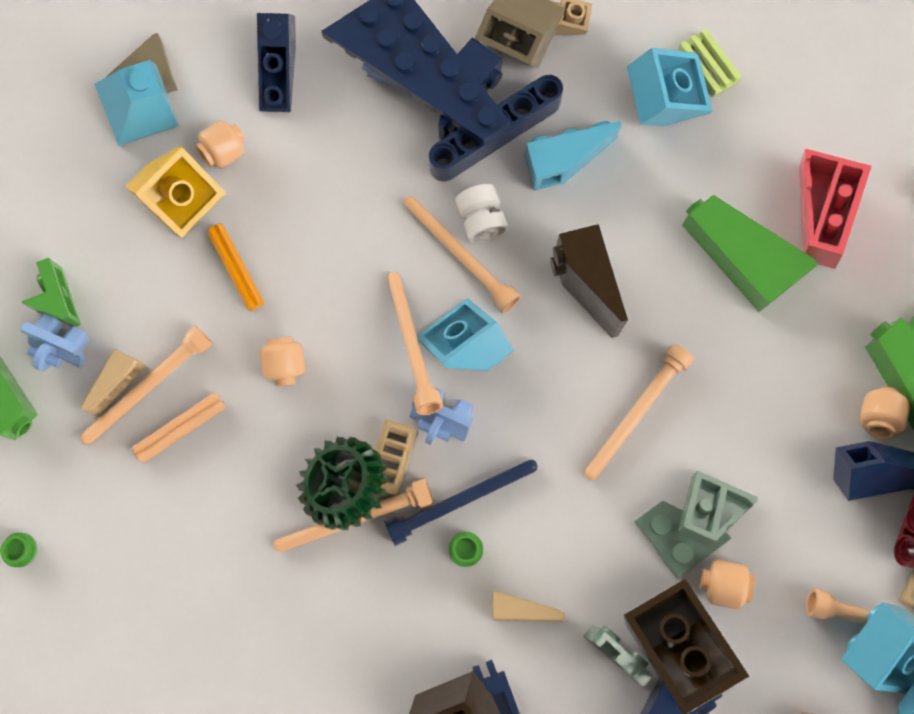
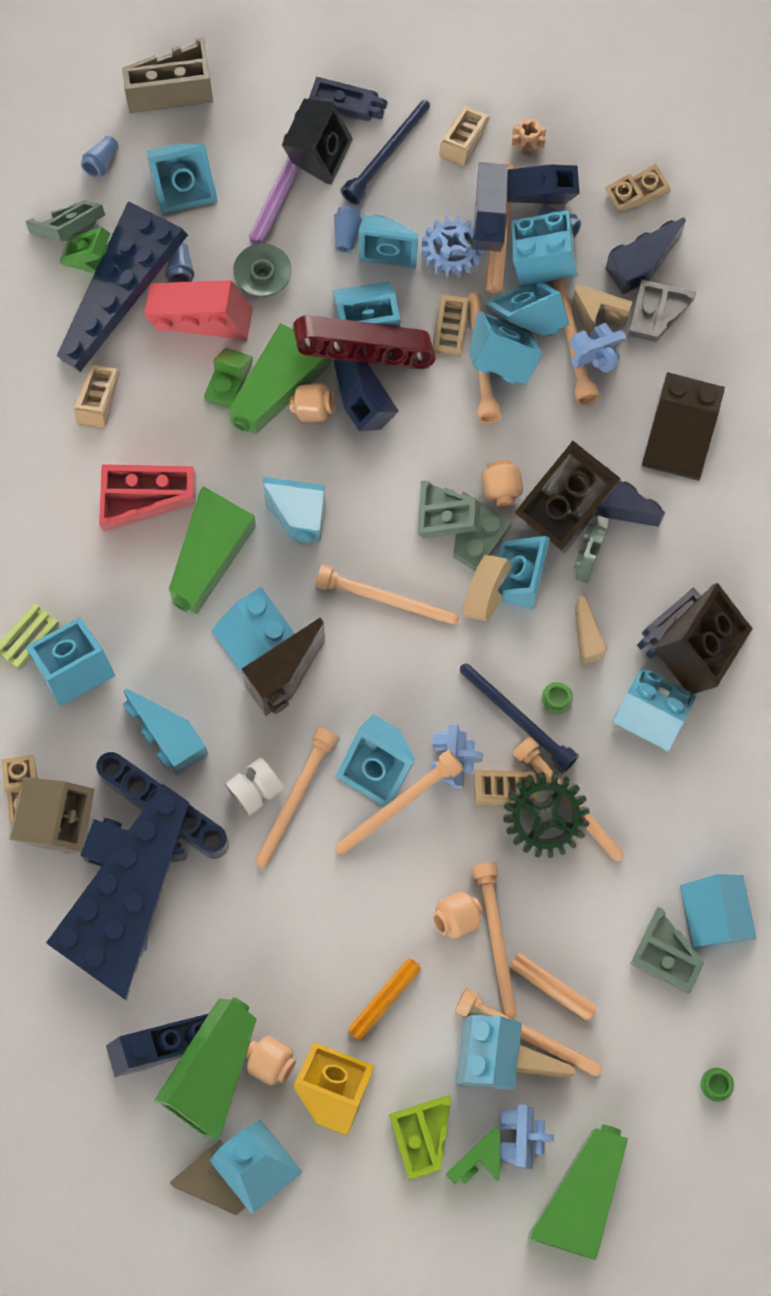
camera: 115 degrees left, 5 degrees down
(99, 254) = (422, 1136): none -> lime wing
(133, 335) = (488, 1052): none -> medium azure slope
(160, 553) = (667, 955): none -> sand green wing
(180, 626) = (717, 910): none -> medium azure slope
(231, 86) = (208, 1071): none -> bright green slope
(310, 403) = (486, 878): none -> light nougat piece
(413, 648) = (654, 709): none -> medium azure slope
(605, 512) = (483, 591): none -> tan slope
(619, 563) = (524, 578): none -> medium azure slope
(645, 268) = (251, 628): none -> medium azure slope
(762, 353) = (297, 507): none -> medium azure slope

